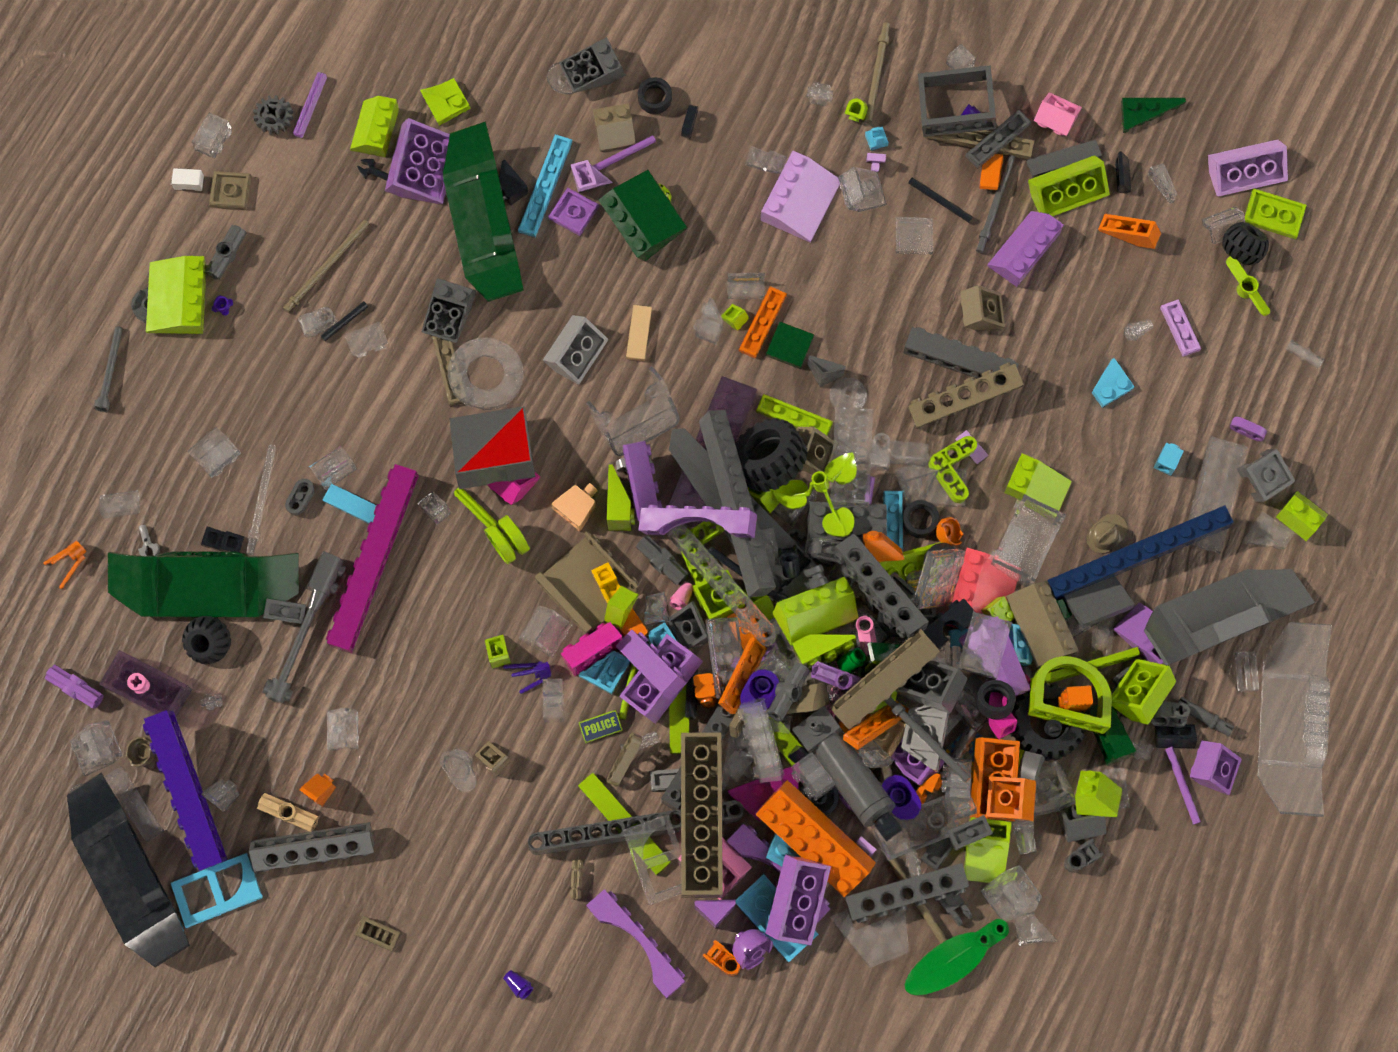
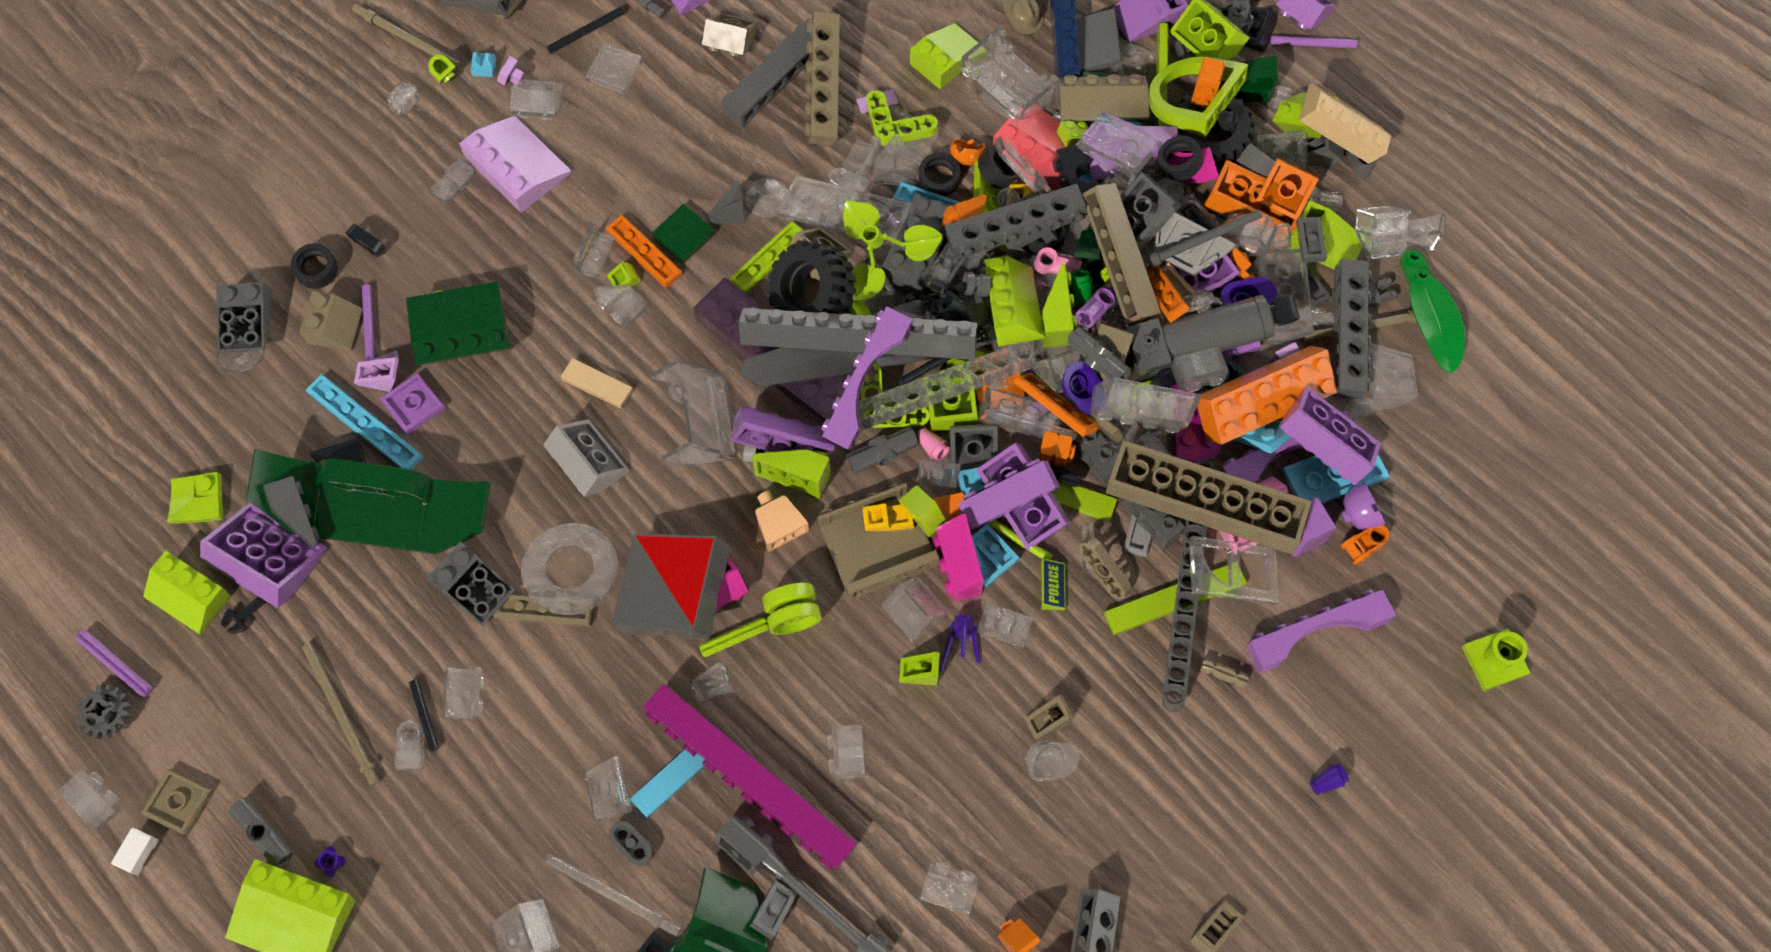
camera: 70 degrees left, 5 degrees down
(415, 621) = (847, 752): none -> clear brick
(455, 162) = (287, 505): none -> dark grey slope
(1091, 827) = (1344, 125): none -> tan slope

